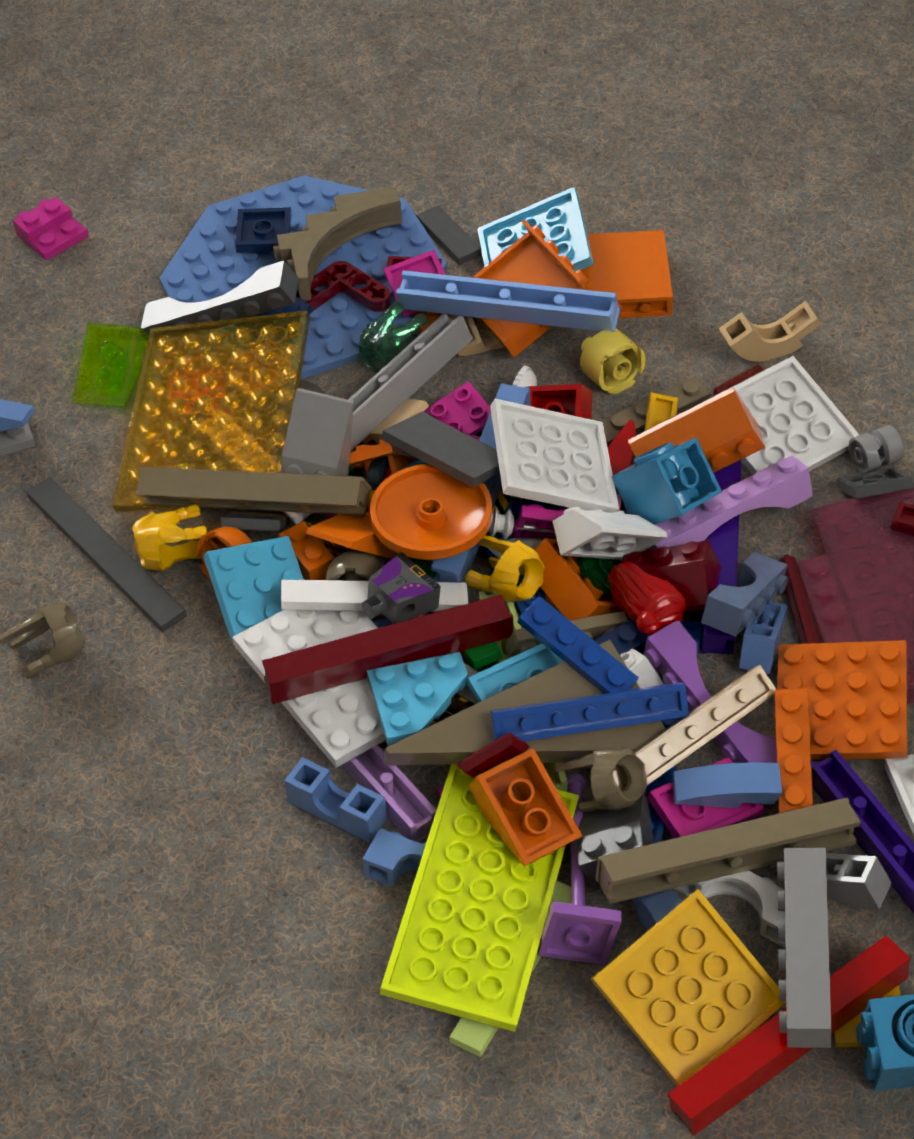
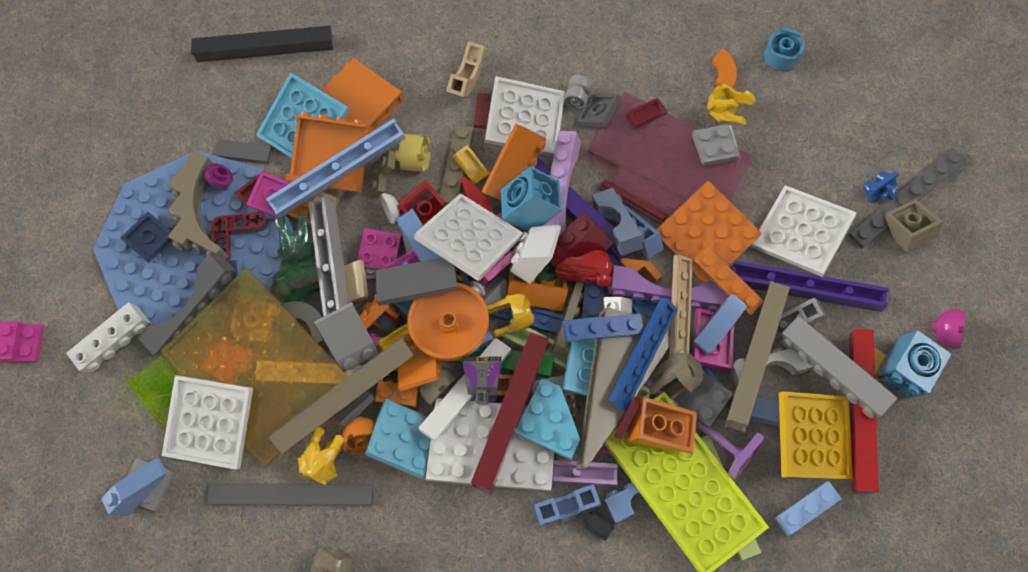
camera: 50 degrees left, 20 degrees up
(113, 419) = (207, 422): none -> white plate
(123, 282) = (108, 338): none -> white brick
(329, 366) = (282, 280): none -> dark green piece
(344, 853) = (598, 525): none -> black brick
(392, 228) = (218, 176): none -> magenta plate
(556, 349) = (379, 170): none -> olive plate
(592, 156) = (262, 44): none -> black tile
(610, 1061) = (807, 508): none -> light blue arch
(713, 664) = (646, 267): none -> orange slope

